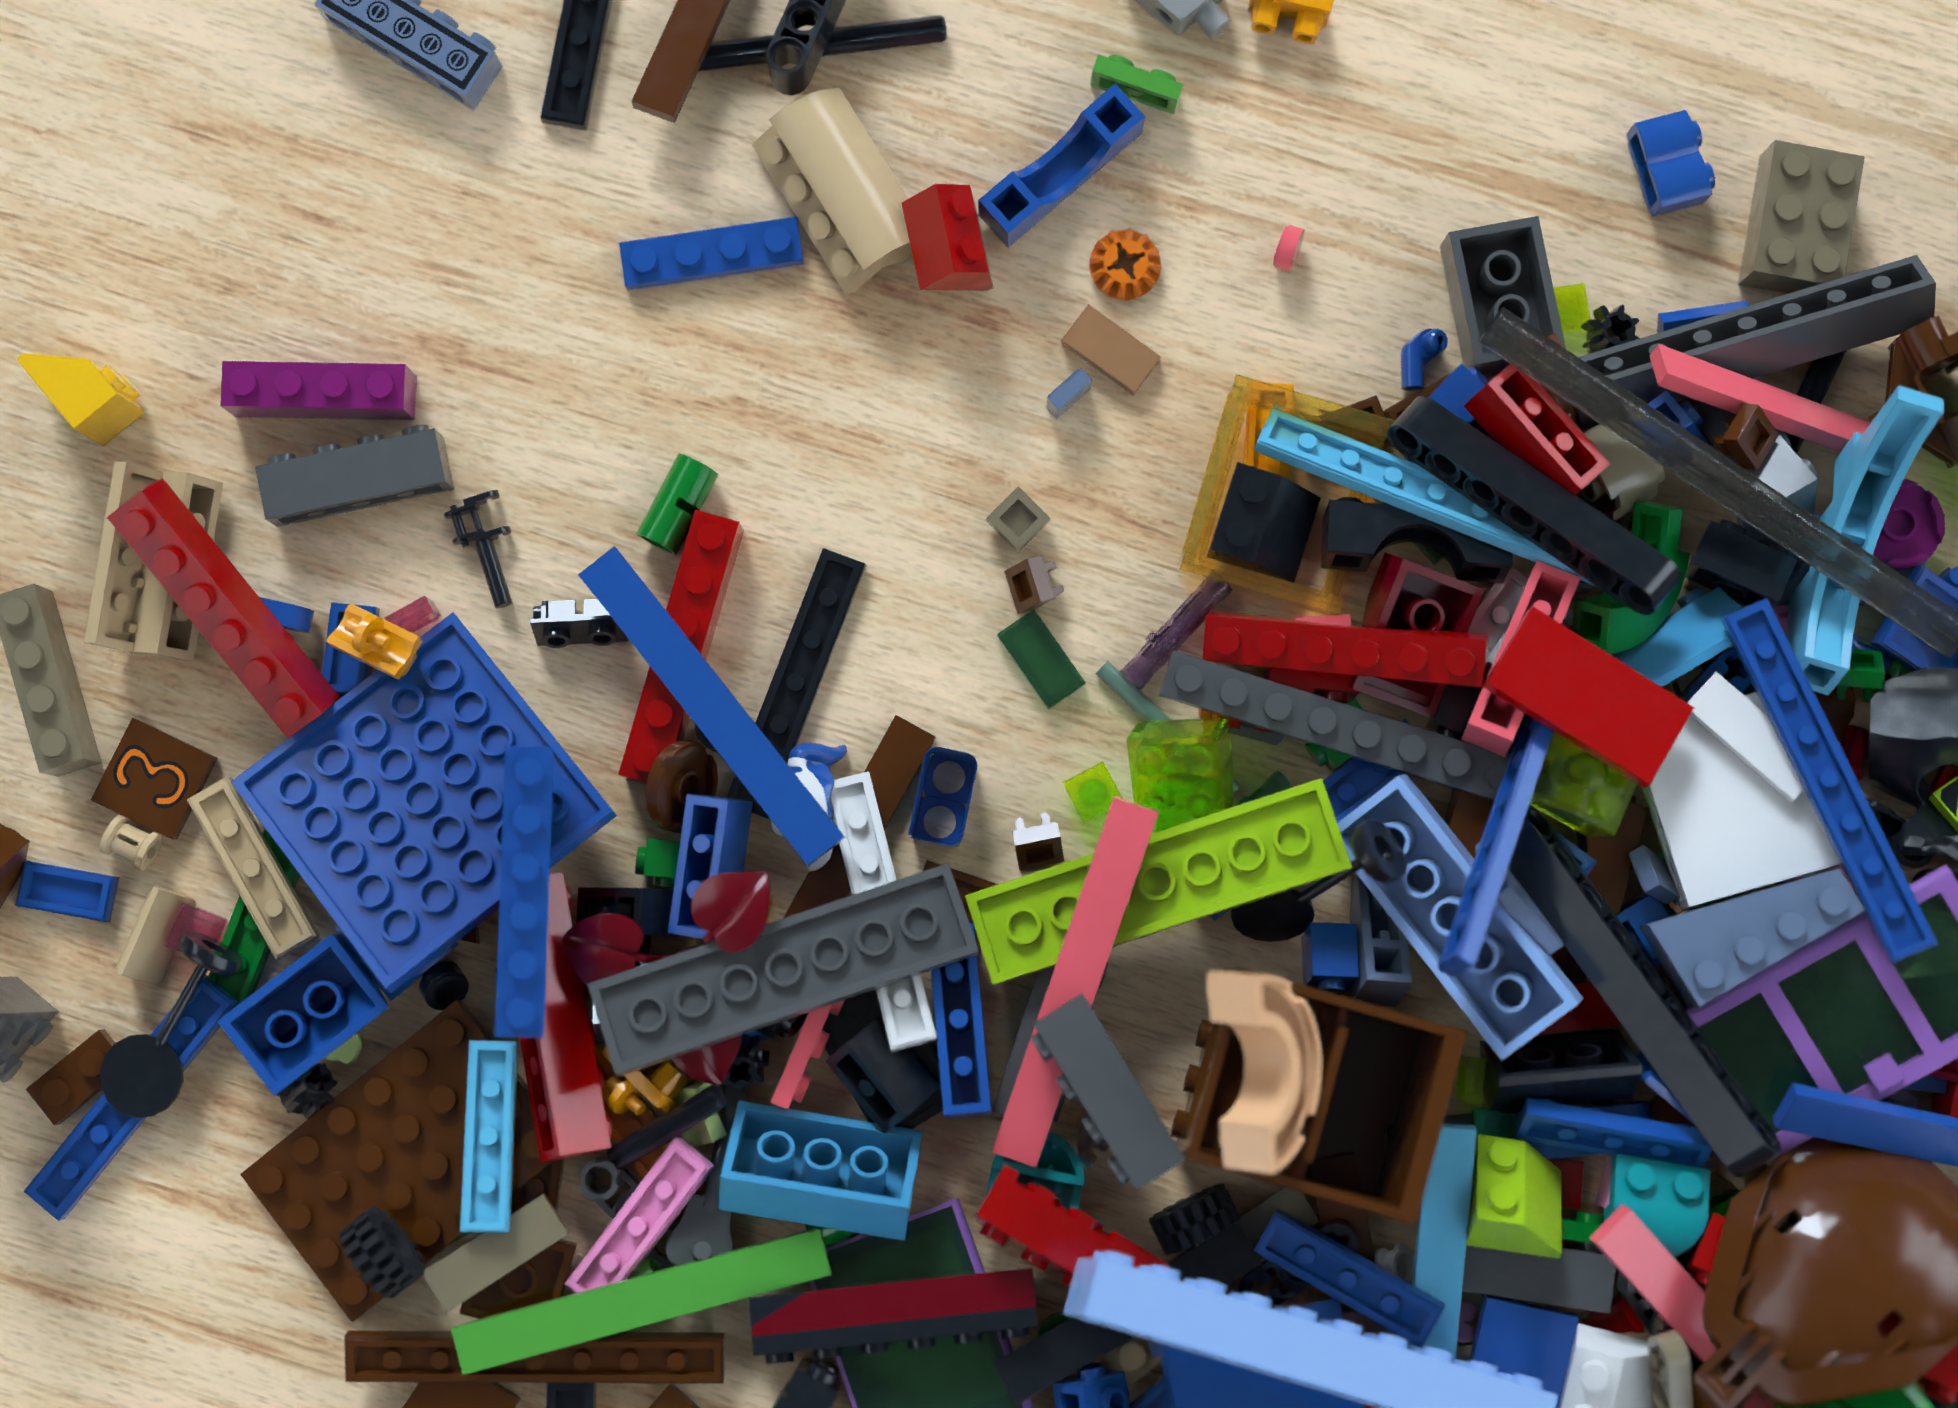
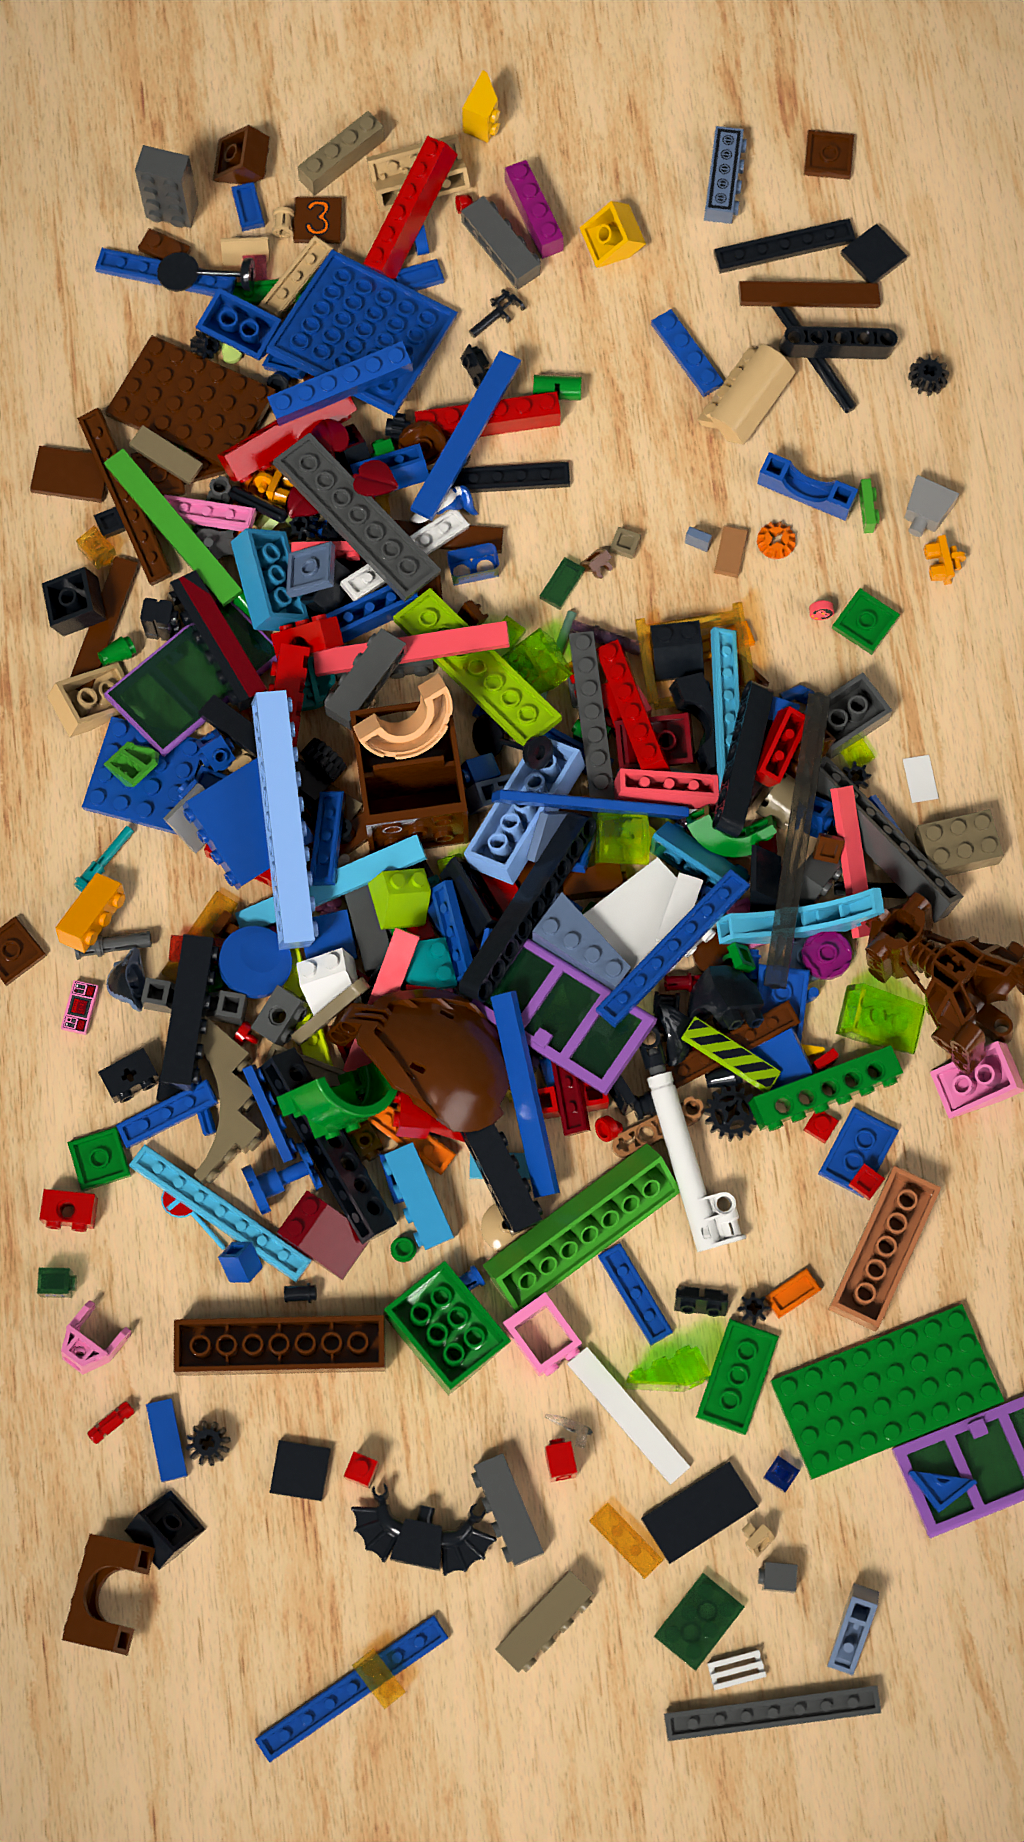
camera: 65 degrees right, 10 degrees down
(246, 507) = (462, 202): none -> red hinge
(375, 642) = (426, 281): light orange hips -> none
(382, 1252) = (145, 402): black tyre -> none
(415, 615) = (446, 295): clear pink tile -> none
(431, 277) = (612, 234): none -> yellow slope
(489, 1136) = (219, 427): medium azure tile -> none
(631, 814) = (395, 426): none -> black gear
(844, 1092) = (310, 569): none -> sand blue tile
(947, 239) = (744, 450): red slope -> none
(956, 1170) = (319, 634): none -> red arch
(1340, 185) = (865, 621): none -> green plate
(1588, 697) = (659, 818): red tile -> none
(1633, 227) = (920, 778): none -> white sticker
(1653, 875) = (590, 898): sand blue tile -> none
(1670, 162) = (956, 770): blue brick -> none

